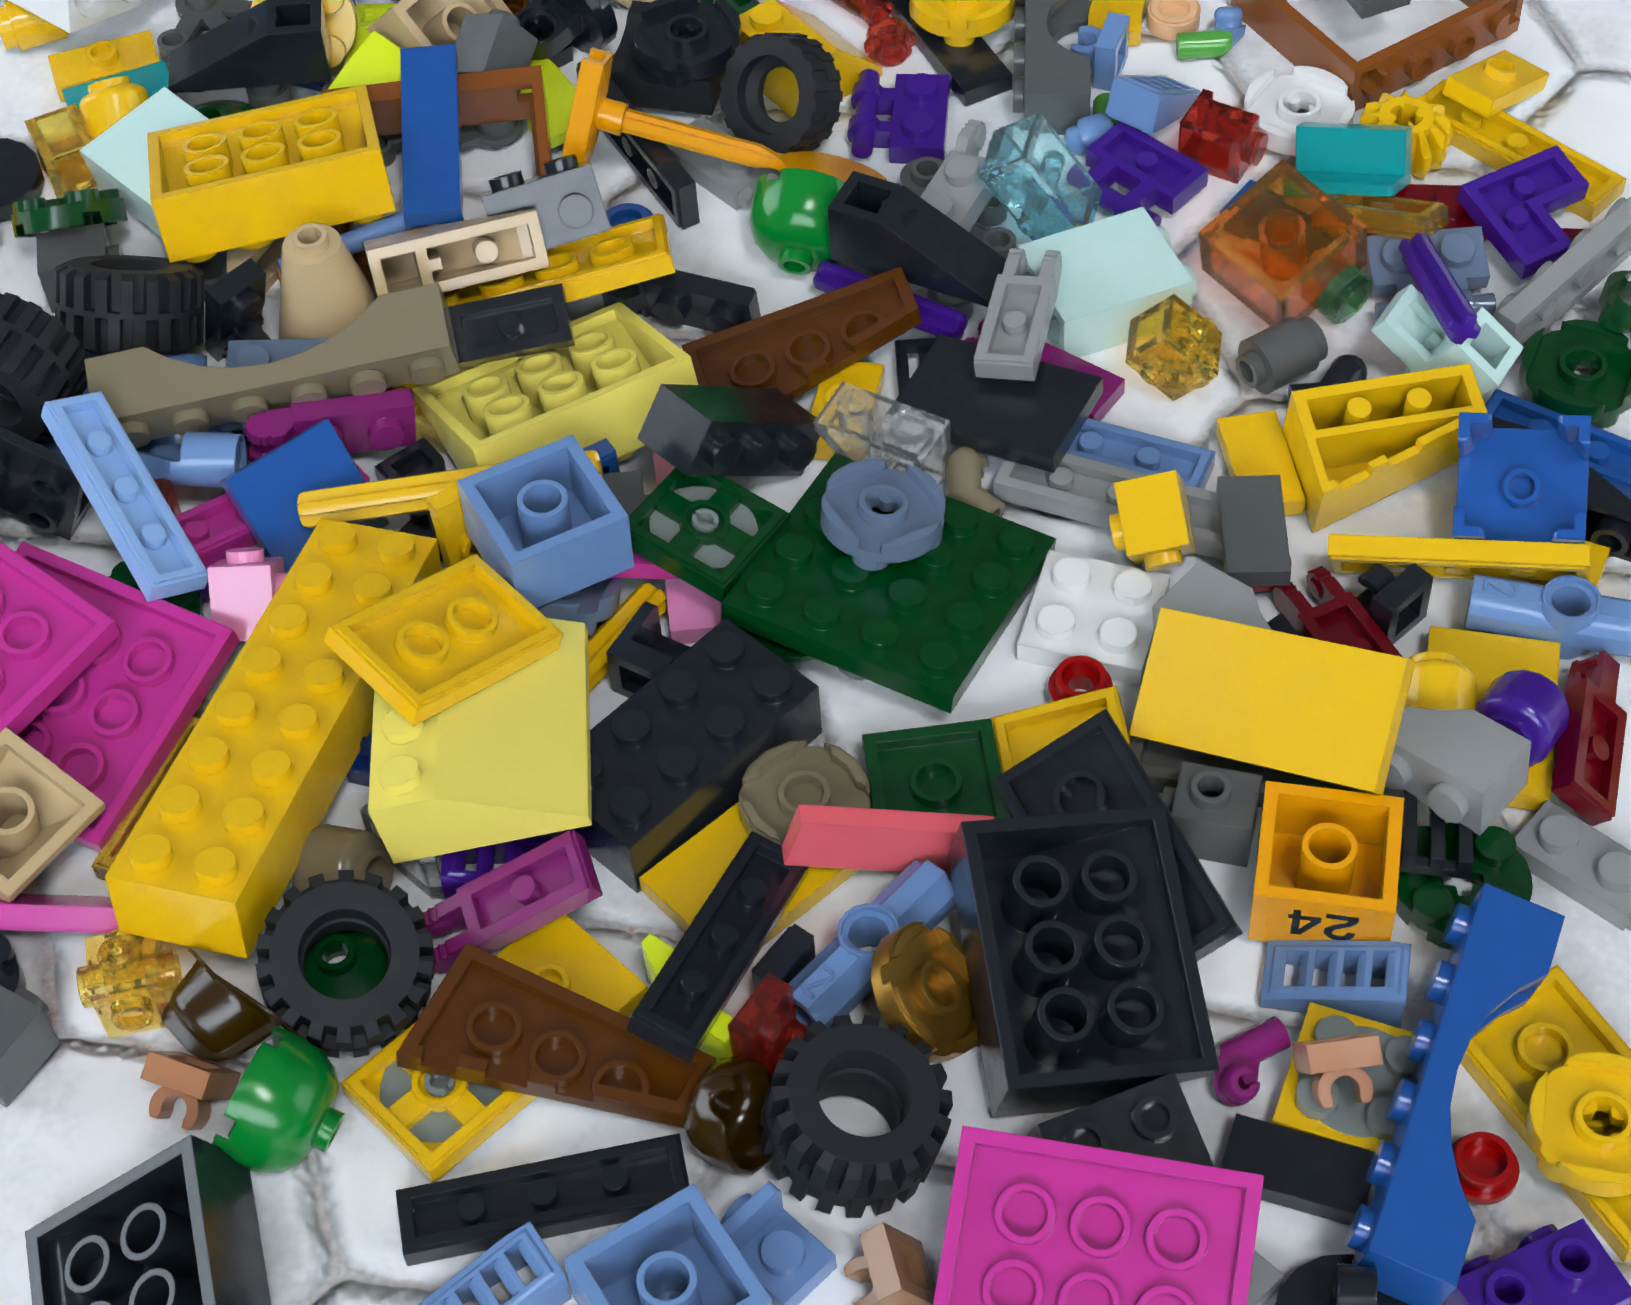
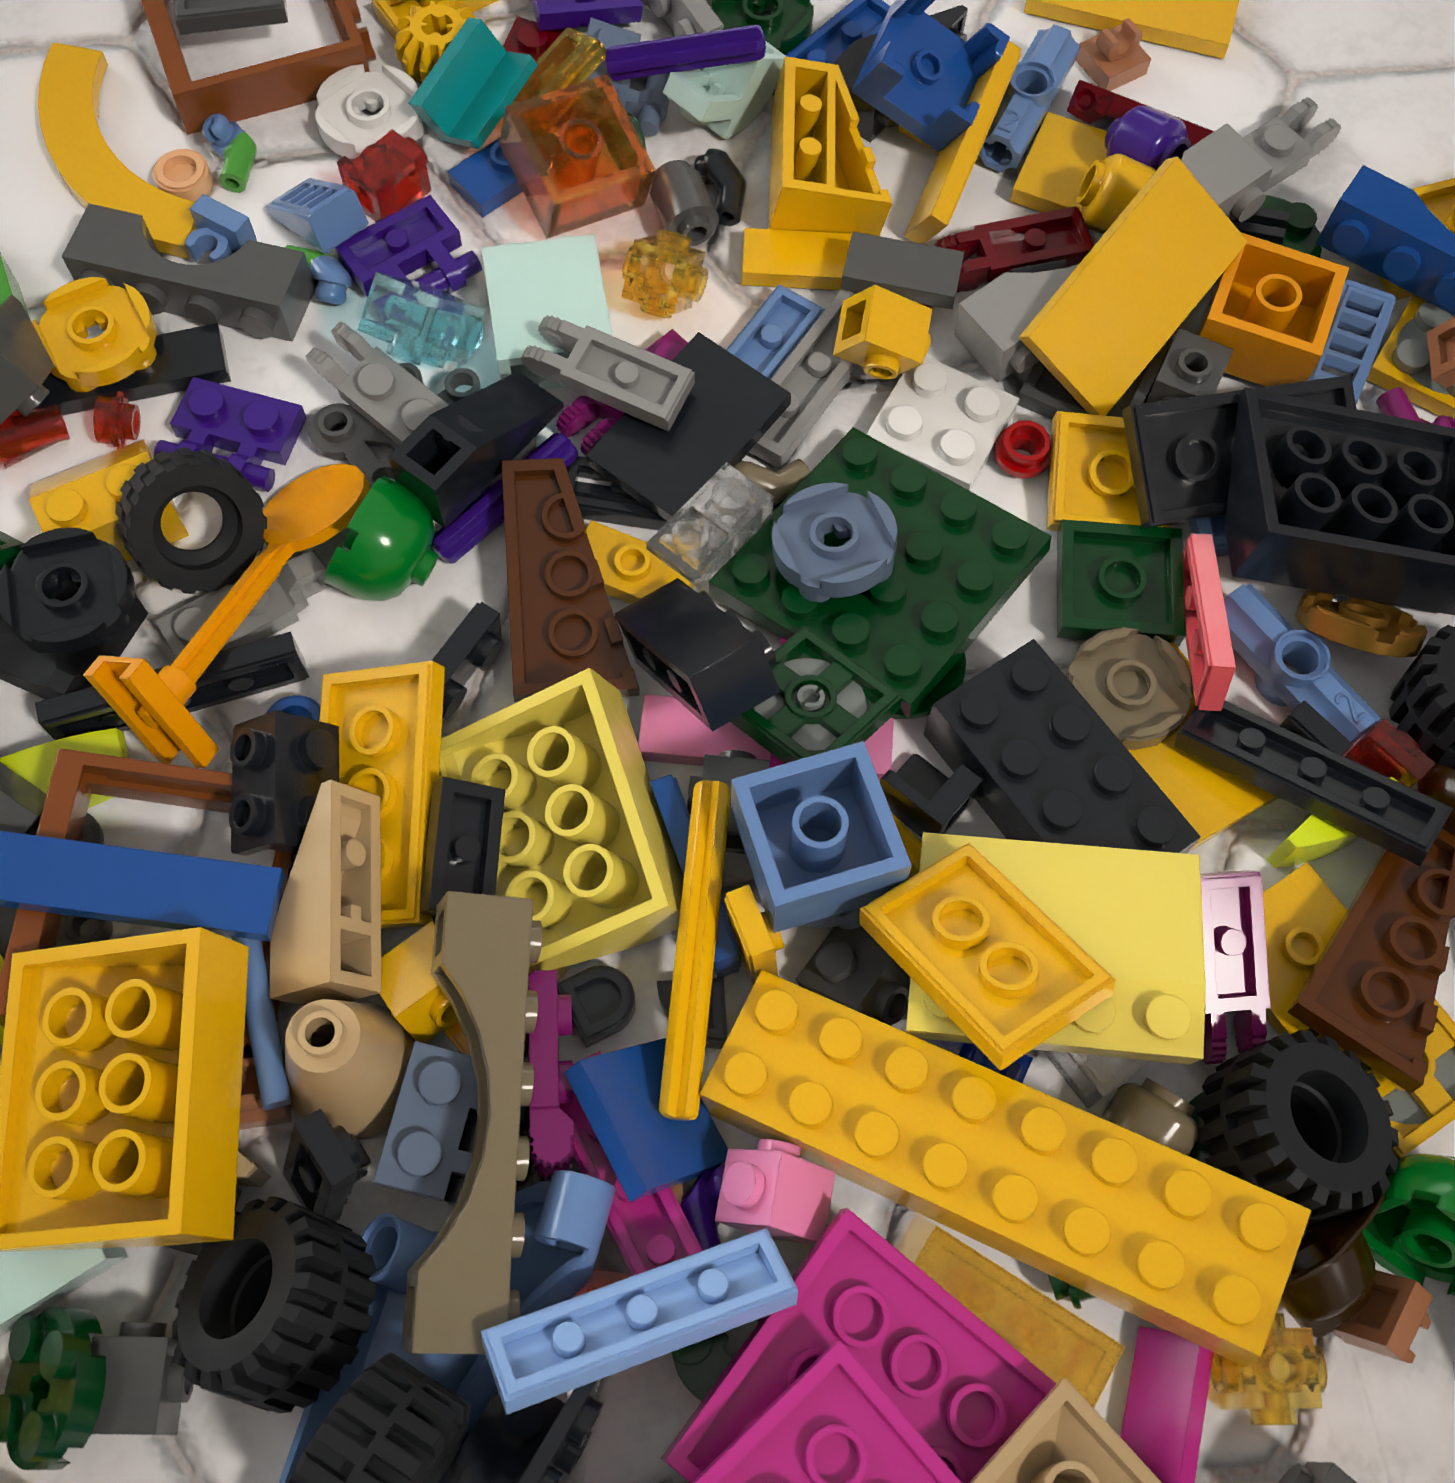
camera: 85 degrees left, 15 degrees up
(1396, 602) = (989, 198): black tile -> none

